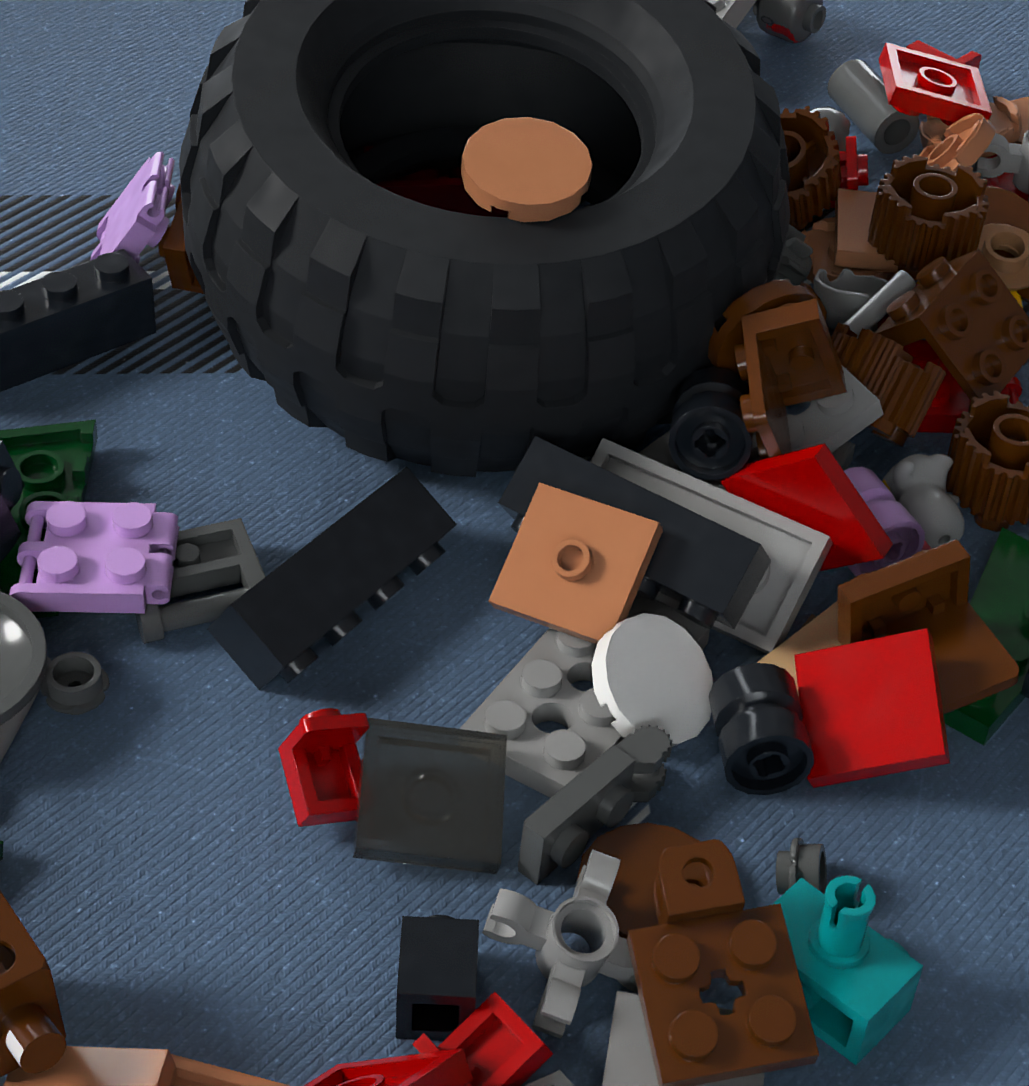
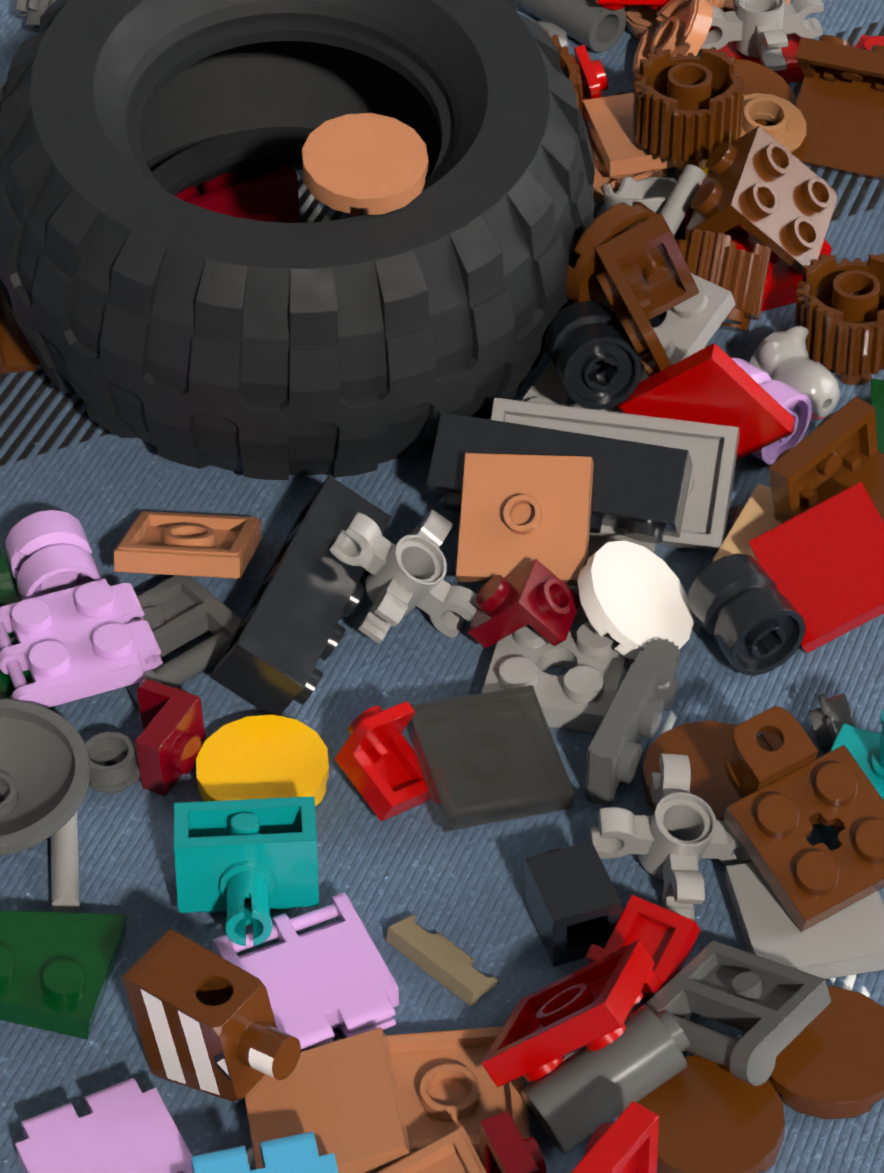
camera: 15 degrees left, 0 degrees up
(124, 466) = (49, 554): none -> lavender wheel
(133, 823) = (246, 860): none -> teal brick
(138, 971) = (321, 976): none -> lavender plate
(141, 677) = (170, 735): none -> dark red bracket
(214, 737) = (263, 761): none -> yellow tile
(258, 495) = (188, 545): none -> nougat plate
(284, 992) = (440, 960): none -> dark tan piece
(423, 602) = (405, 575): none -> light grey pin
(545, 646) = (523, 598): none -> dark red bracket

